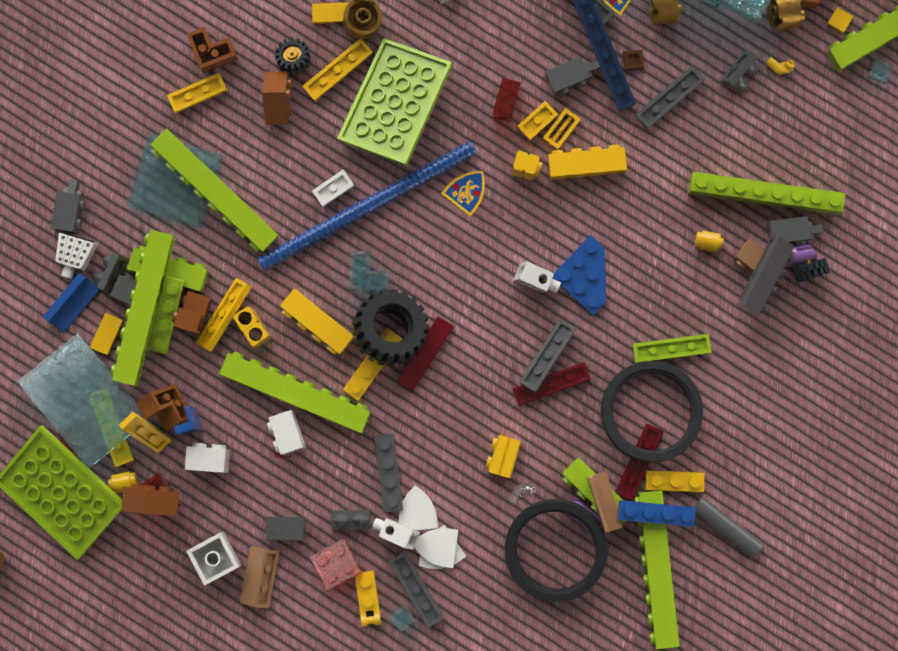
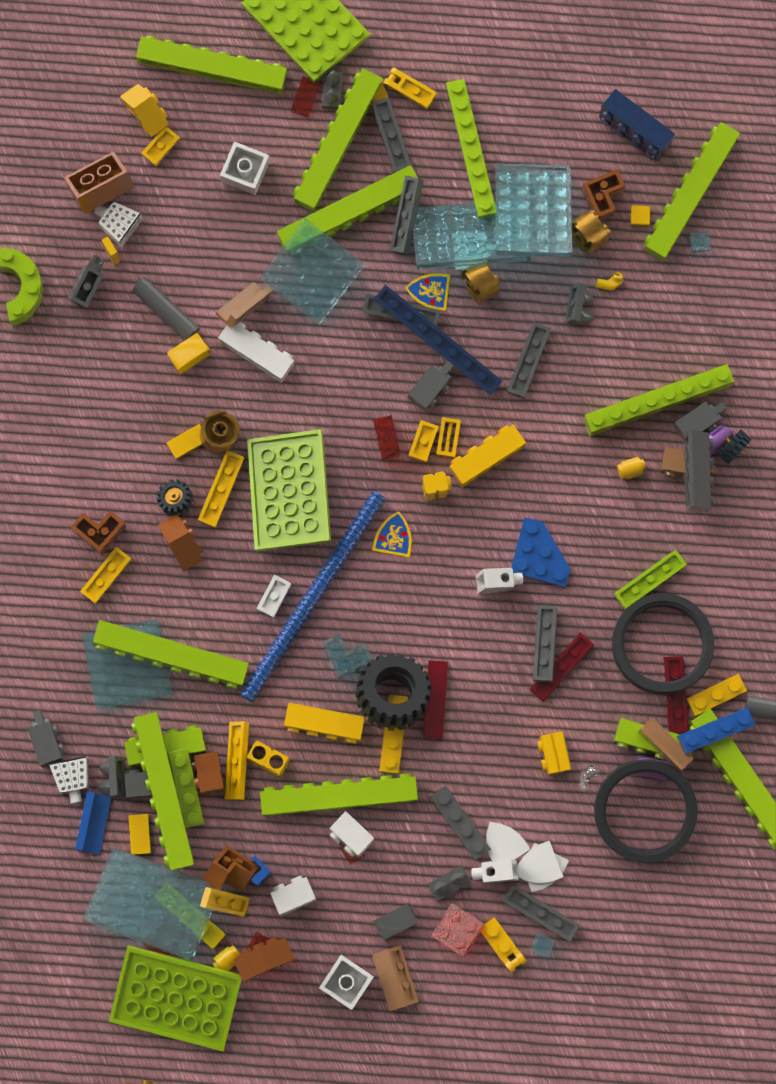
camera: 35 degrees left, 5 degrees down
(633, 60) = (478, 344): reddish brown tile -> none

